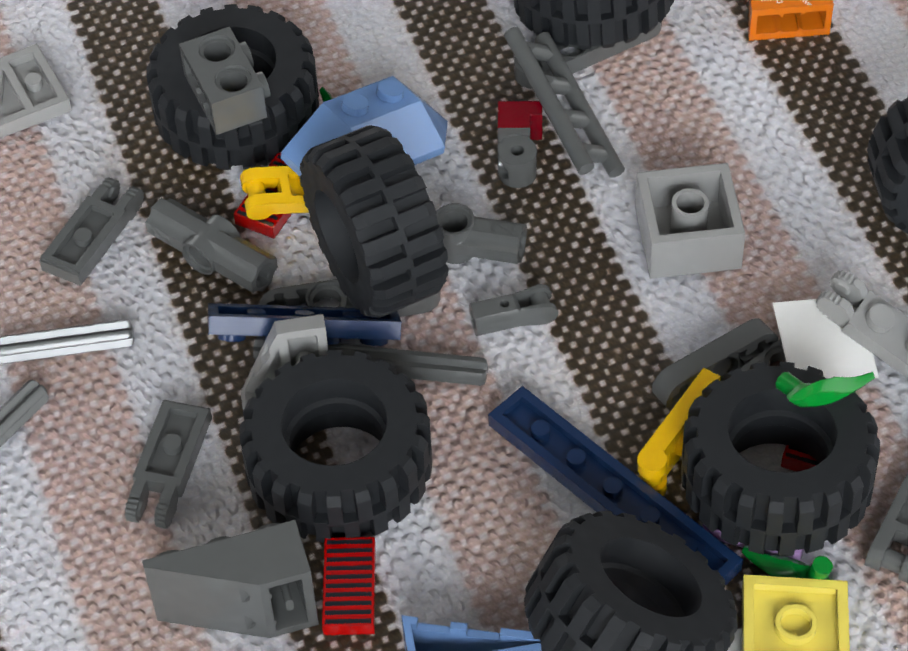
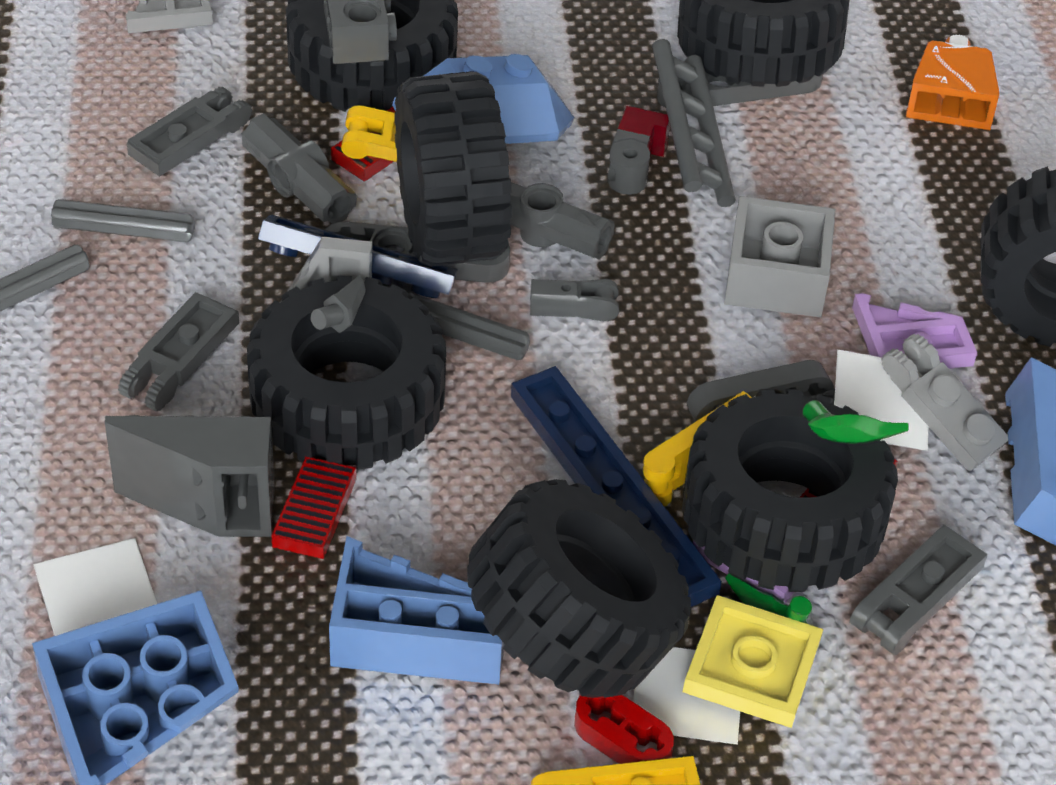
camera: 10 degrees right, 5 degrees down
(319, 389) = (340, 308): none -> dark grey bar
(813, 264) = (889, 328): none -> lavender wing

